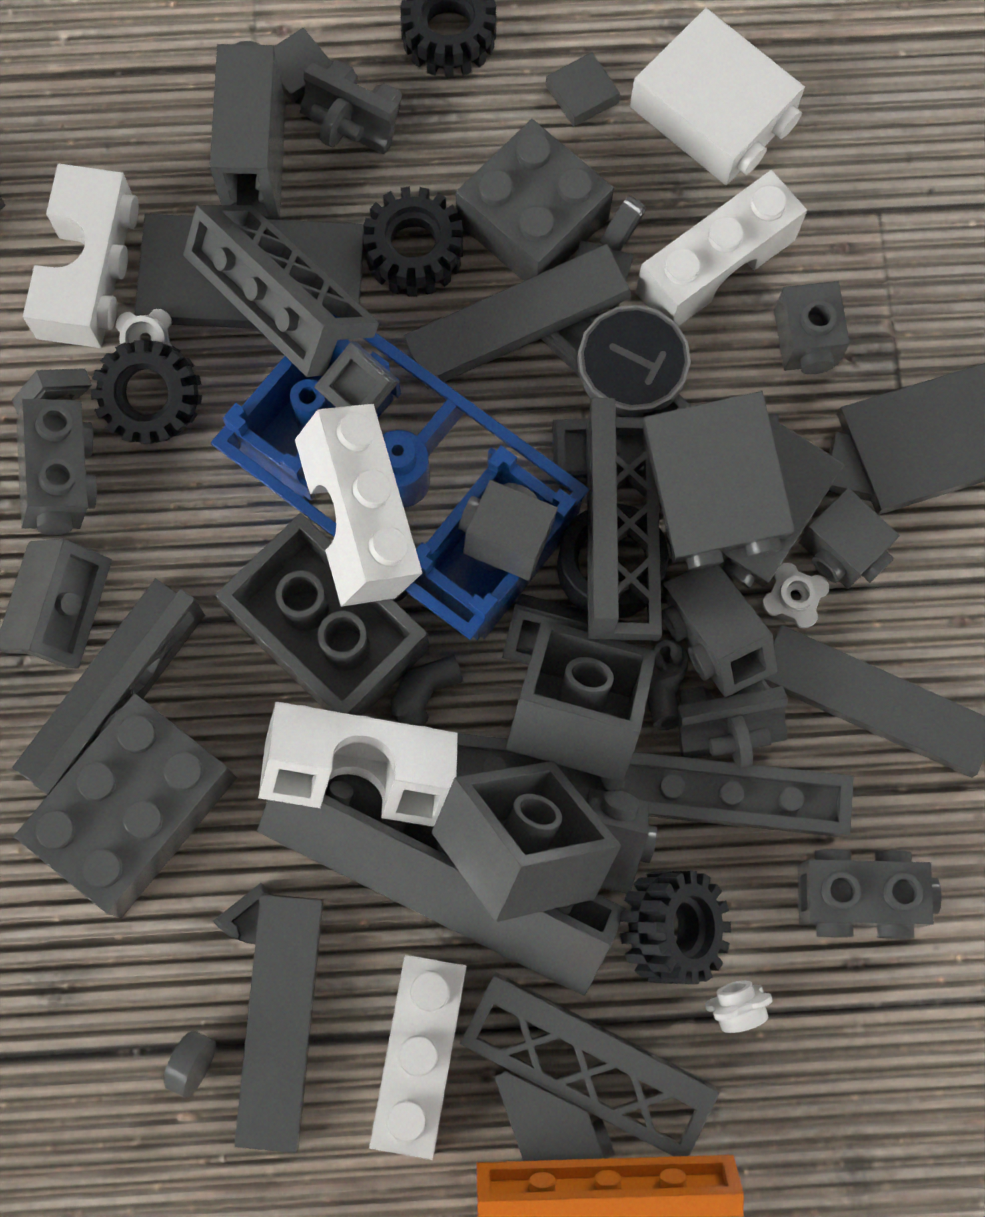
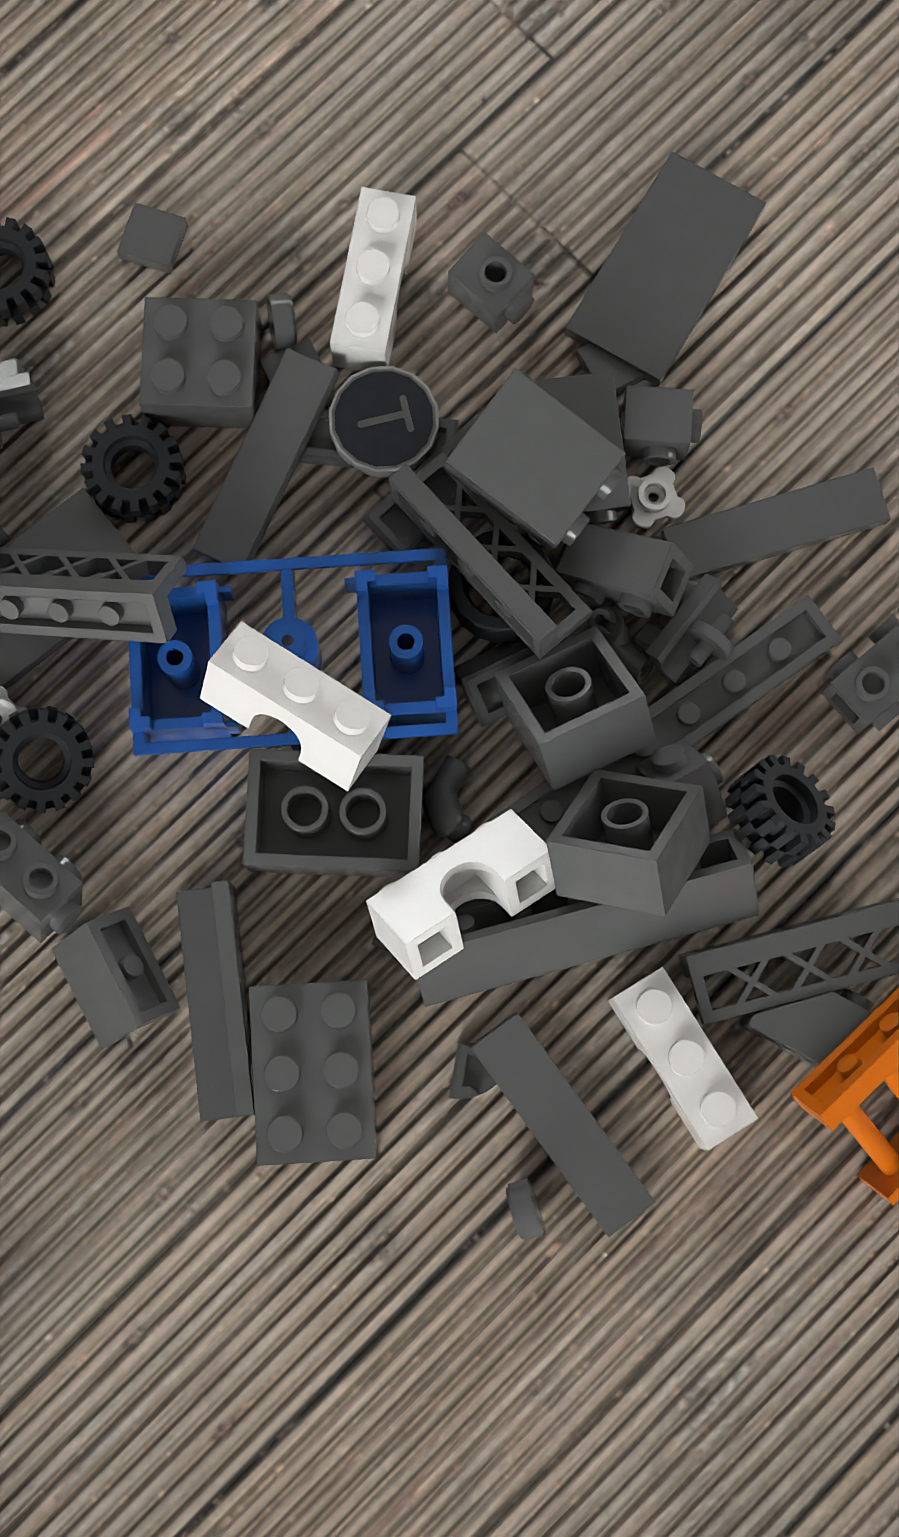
camera: 40 degrees left, 5 degrees up
(356, 379) = (205, 615): dark grey tile -> none
(507, 528) = (418, 628): dark grey brick -> none
(717, 97) = (264, 159): white brick -> none
(739, 1006) = (869, 827): white plate -> none

